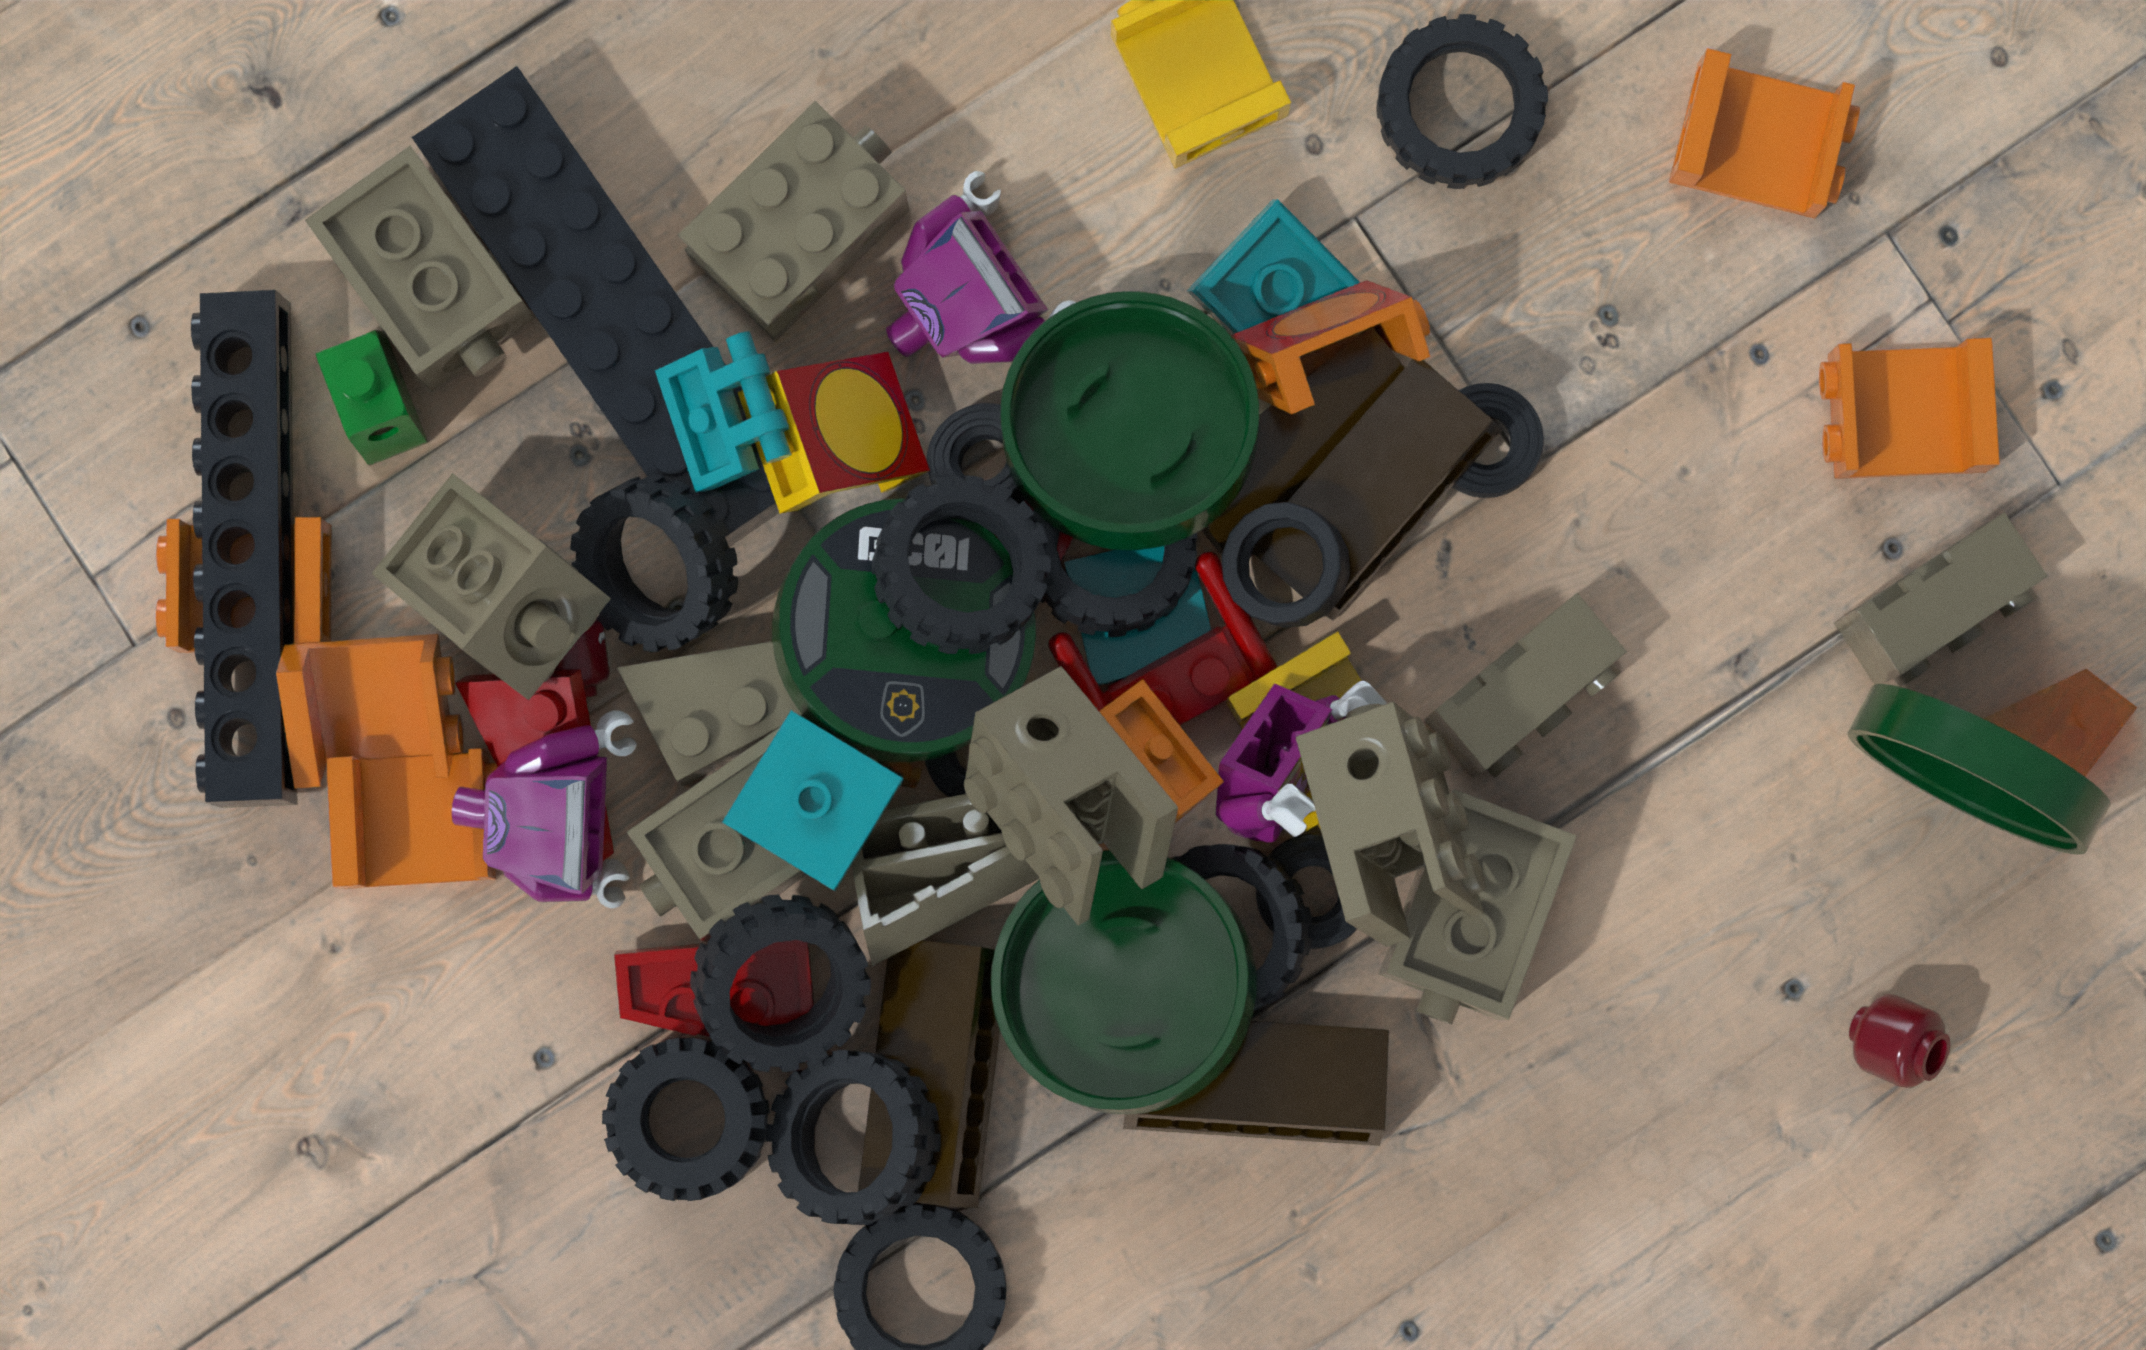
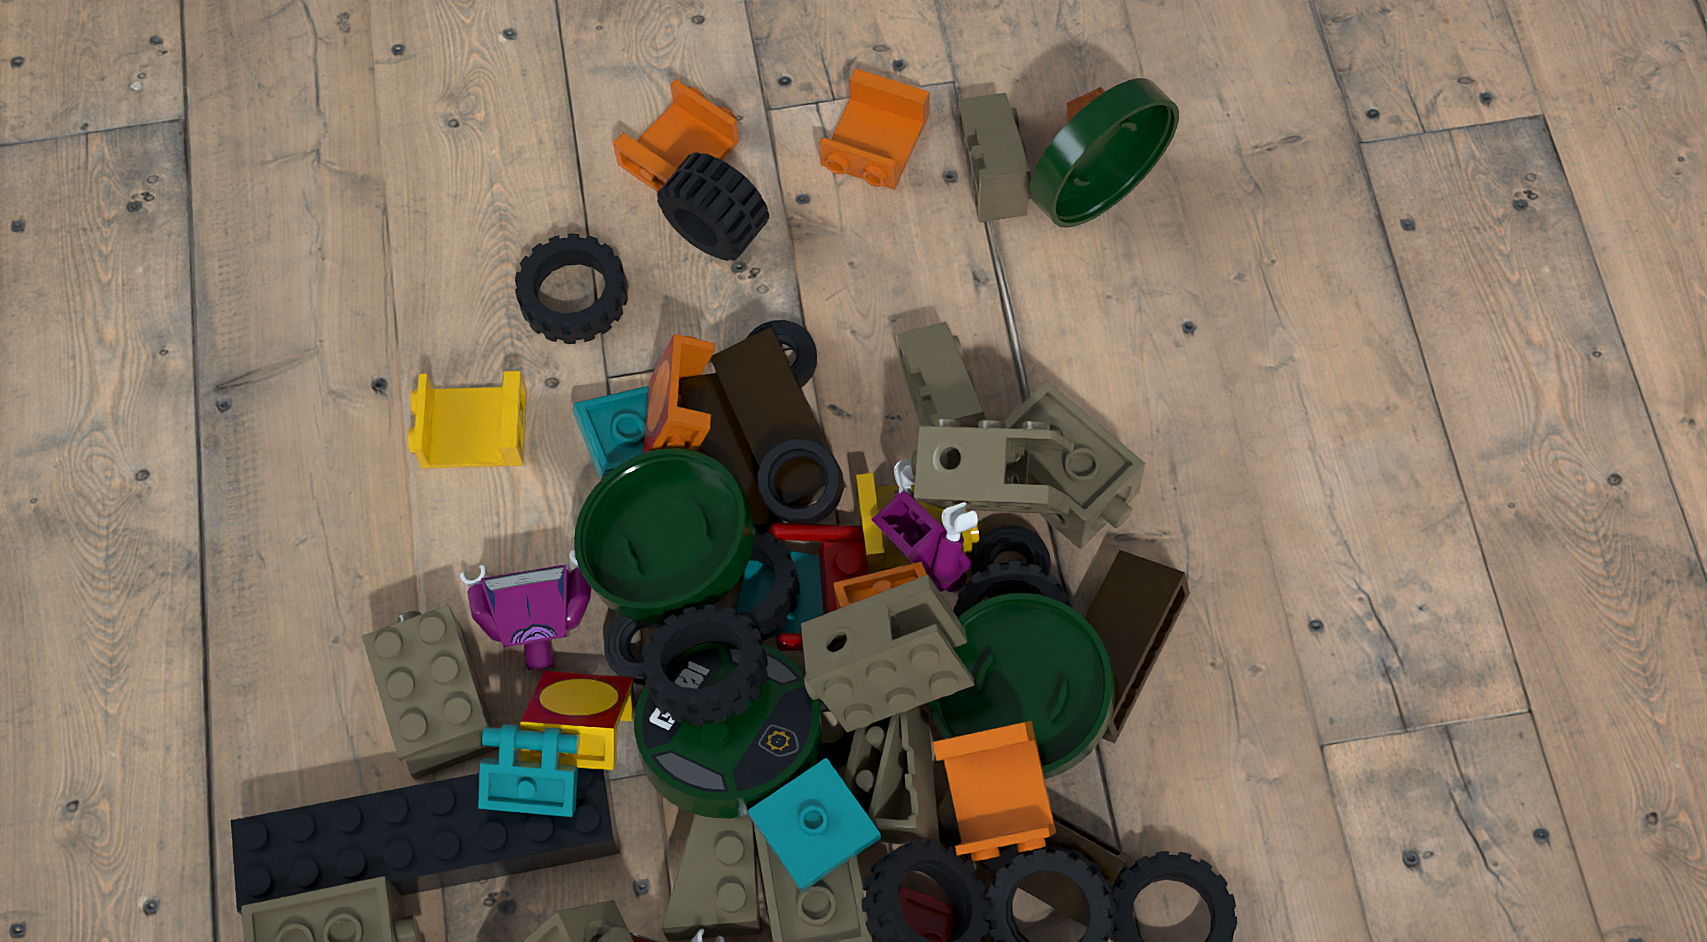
camera: 60 degrees left, 20 degrees down
(698, 540) = (606, 827): black tyre -> none
(966, 1010) = (997, 790): none -> orange panel
(1660, 244) = (713, 206): none -> black tyre
(1899, 1041) = (1245, 274): dark red head -> none

